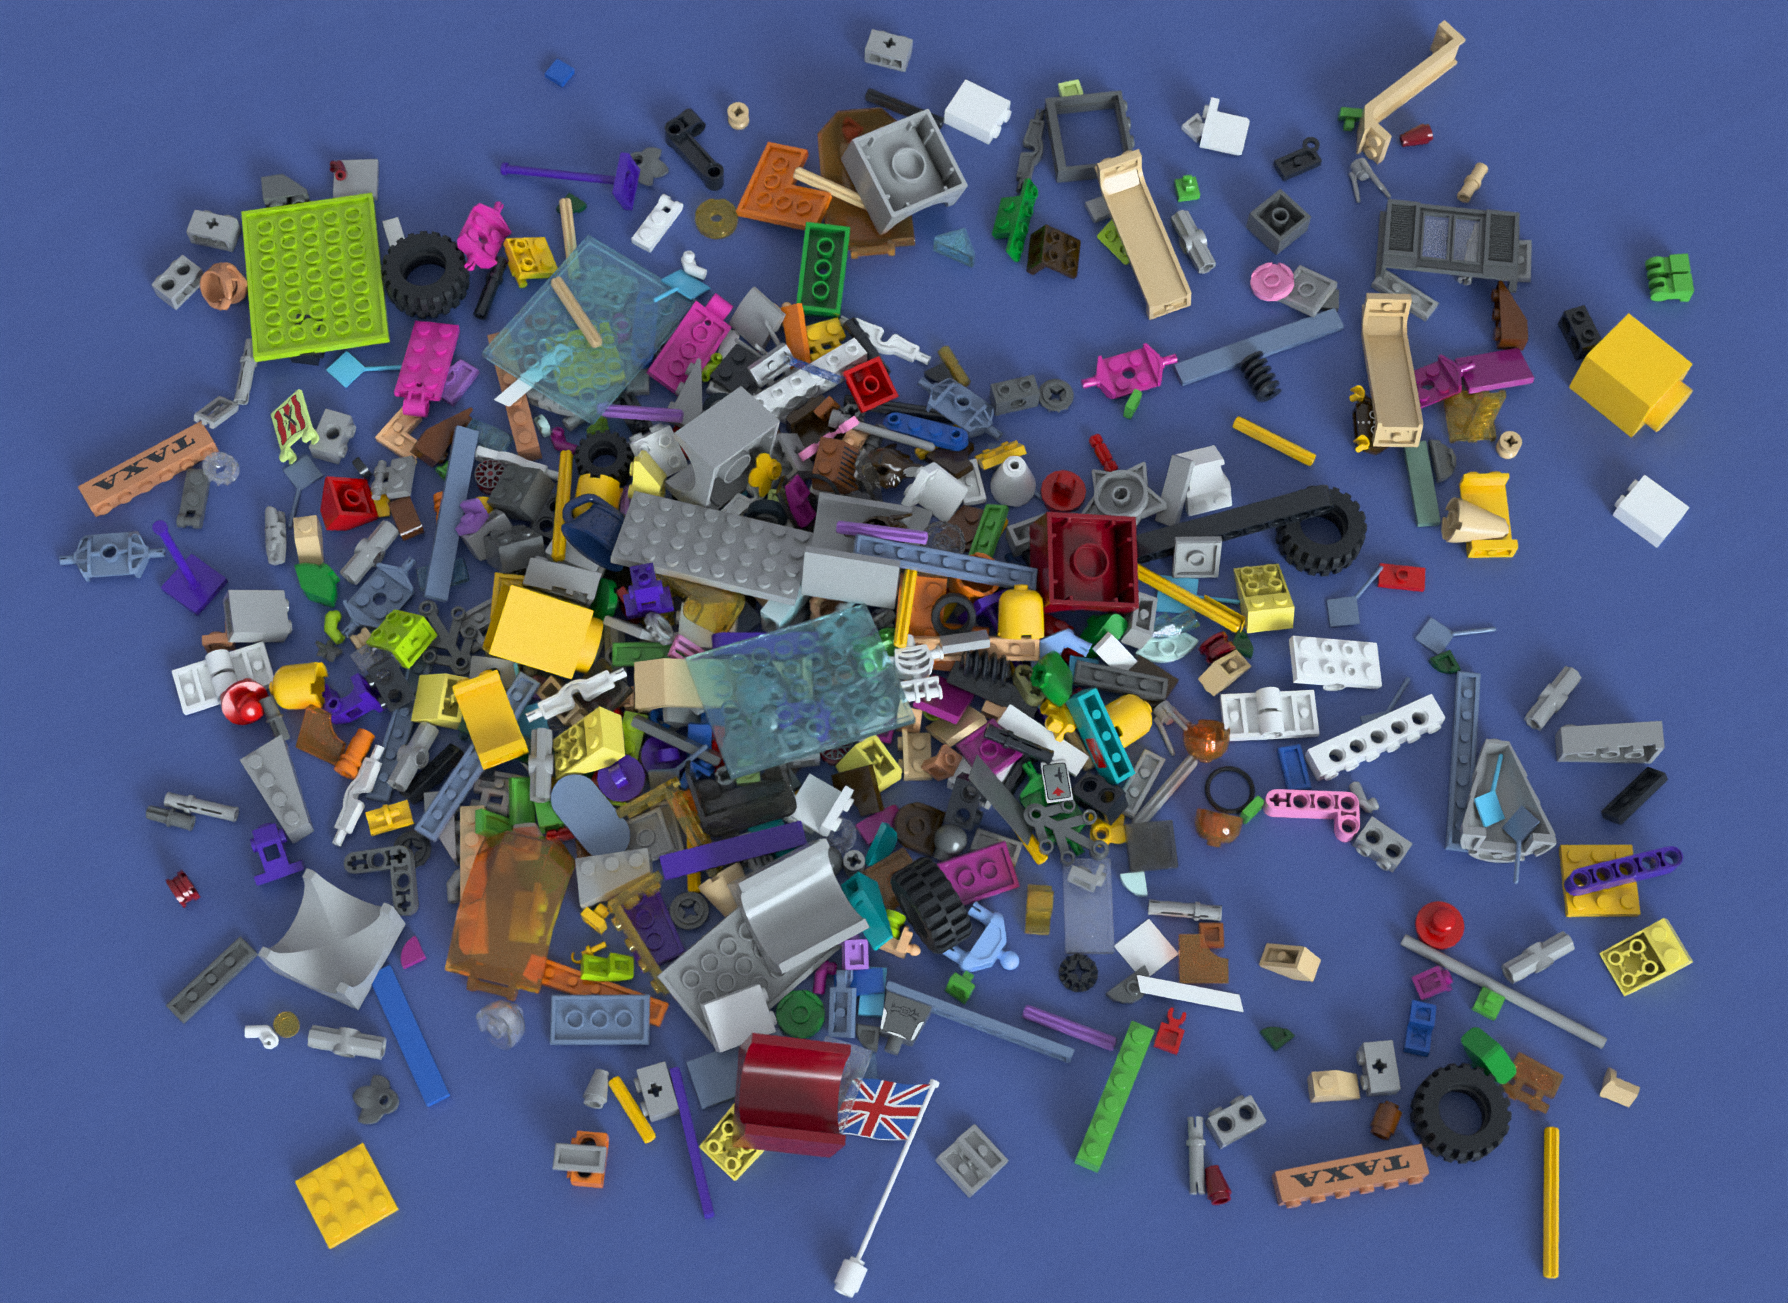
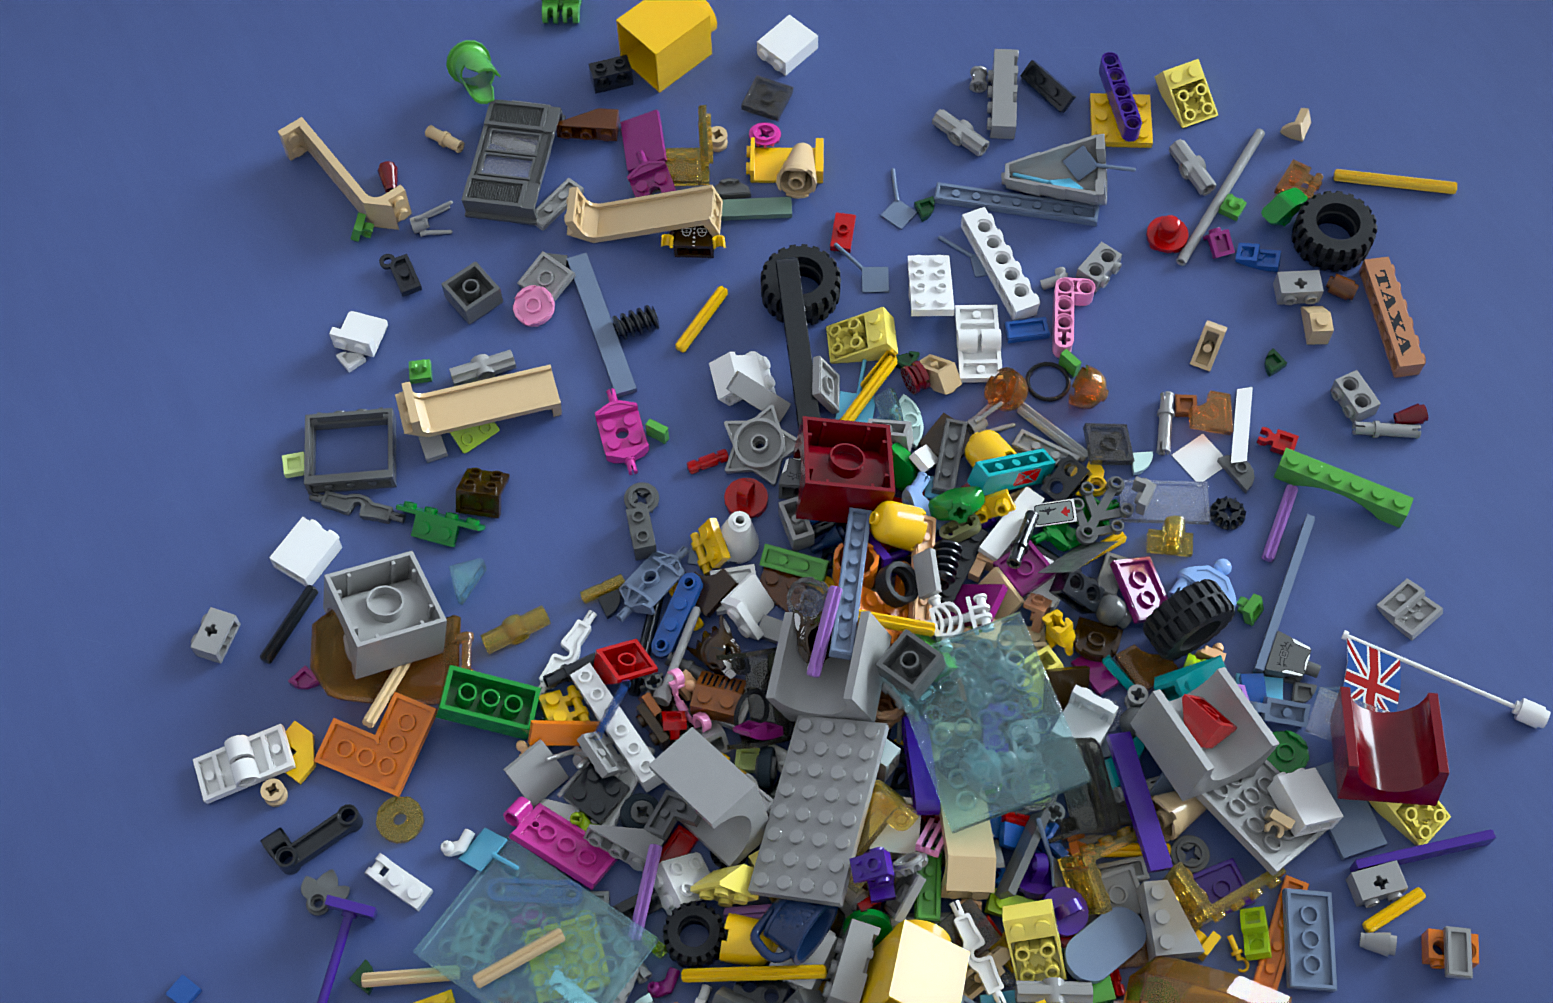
camera: 85 degrees left, 5 degrees down
(711, 983) = (1279, 820): none -> tan tile
(764, 88) = (243, 763): none -> white plate
(789, 131) = (303, 743): none -> yellow tile
(807, 428) = (674, 722): none -> red tile
(808, 903) = (1205, 721): none -> red slope
(851, 615) = (911, 665): none -> dark grey brick
(906, 294) = (515, 629): none -> clear yellow piece
(920, 784) = (1059, 632): none -> yellow animal
(1521, 483) = (765, 129): none -> dark pink gear
(1562, 192) = (477, 59): none -> bright green piece
(1572, 493) = (767, 98): none -> clear smoke plate
(1627, 716) = (978, 81): none -> light grey bush

